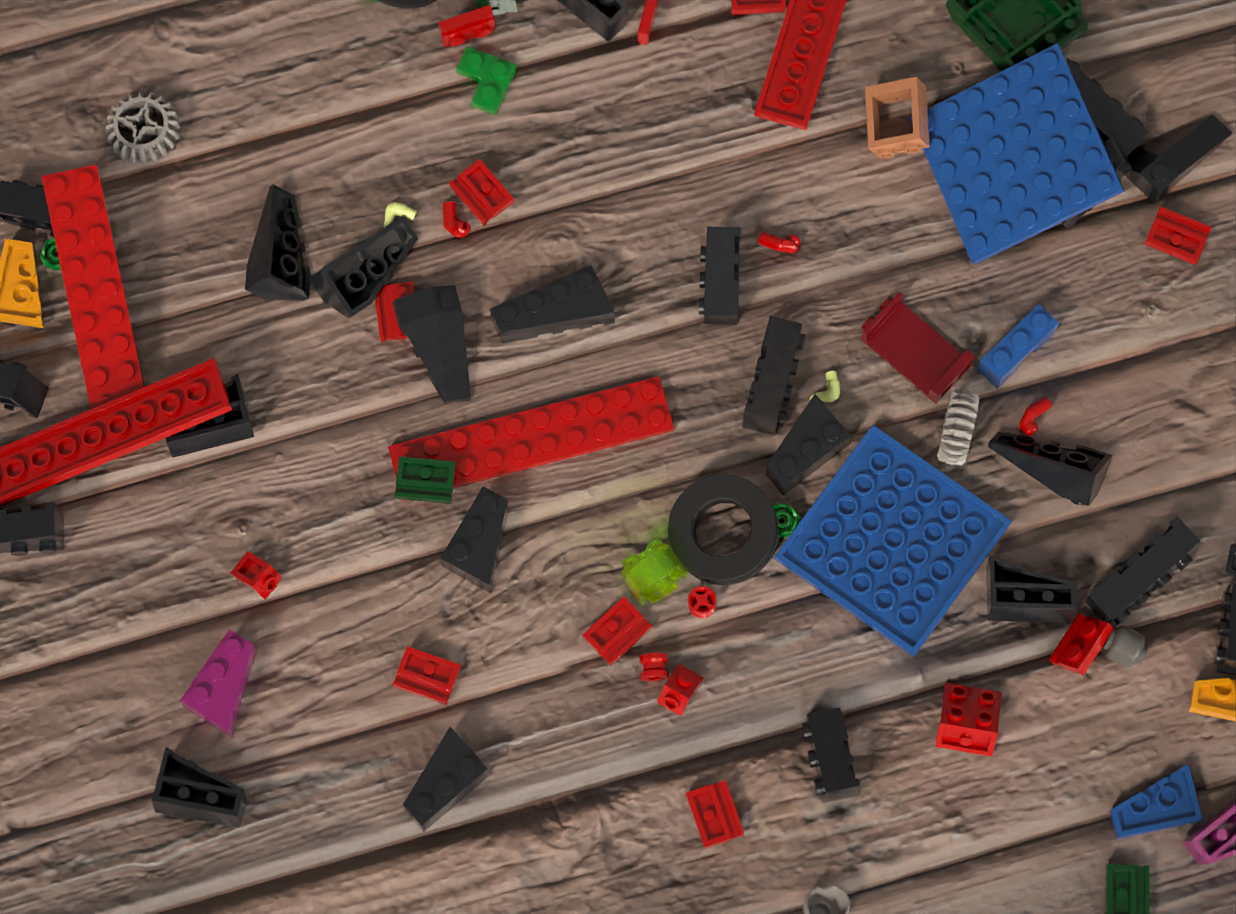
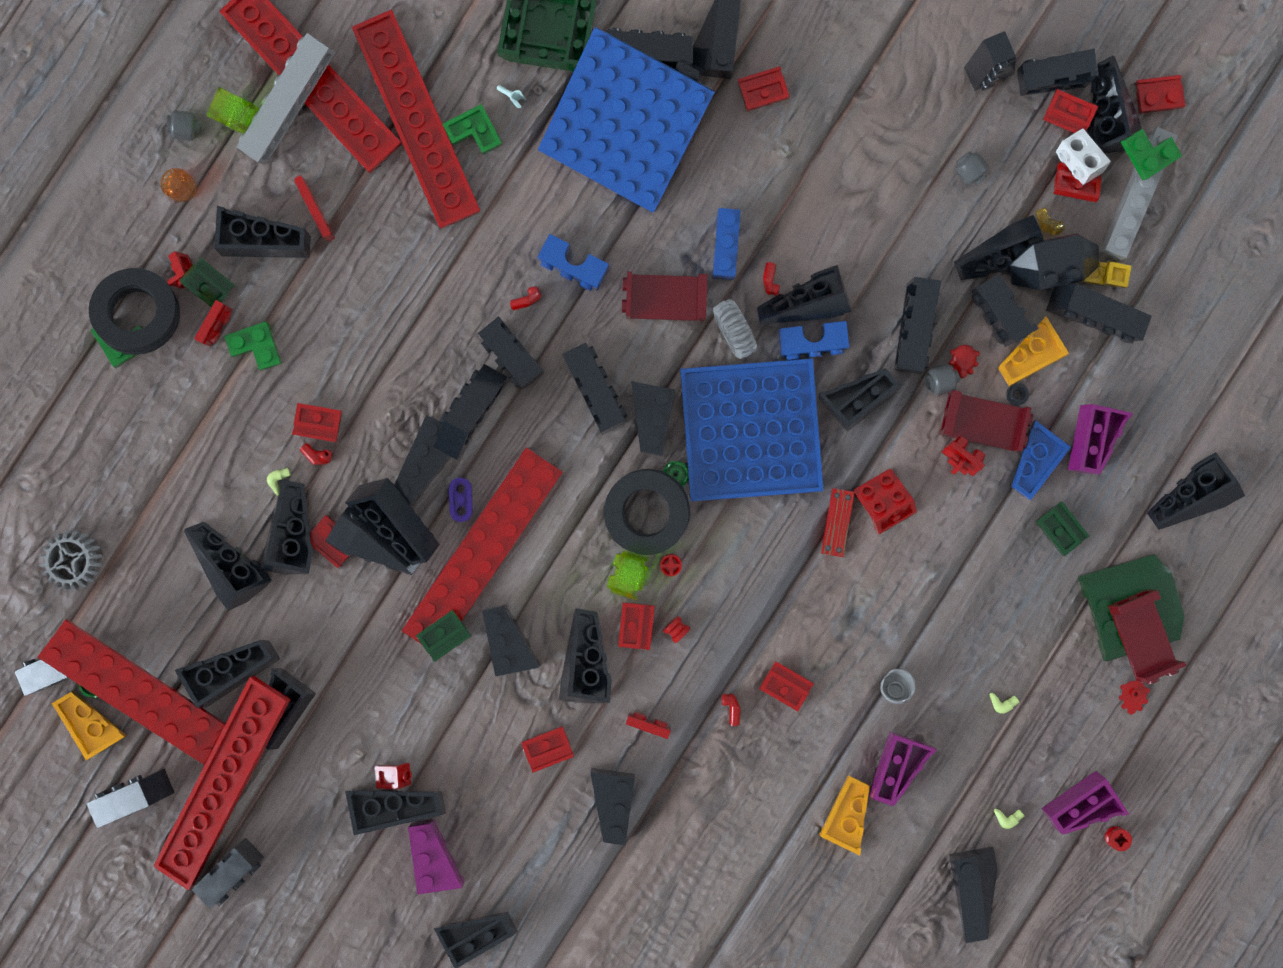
camera: 40 degrees left, 15 degrees up
(184, 342) = (221, 674): none -> black wedge
(226, 600) = (388, 808): none -> black wedge
(476, 334) = (395, 520): none -> black wedge
(532, 629) = (585, 667): none -> black wedge
(552, 373) = (460, 499): none -> dark purple plate
(552, 745) = (640, 722): none -> red plate
(635, 291) = (468, 410): none -> black wedge
(644, 791) = (735, 710): none -> red arm
(679, 689) = (702, 628): red bracket -> none
(830, 755) = (825, 594): black wedge -> none
(833, 388) = (636, 364): yellowish green animal -> none
(861, 267) = (554, 257): none -> blue arch
(870, 47) = (476, 124): none -> green plate
(894, 92) = (521, 134): nougat window -> none
(902, 700) = (837, 522): none -> red tile
(930, 54) = (514, 96): none -> light aqua hand
(1045, 521) = (794, 343): none -> blue arch
(1081, 644) = (915, 400): red plate -> none
(1081, 742) = (962, 459): none -> red hips
(1134, 725) = (986, 422): none -> dark red panel
(1164, 649) = (964, 360): none -> red piece
(1195, 718) = (1024, 394): none -> black plate

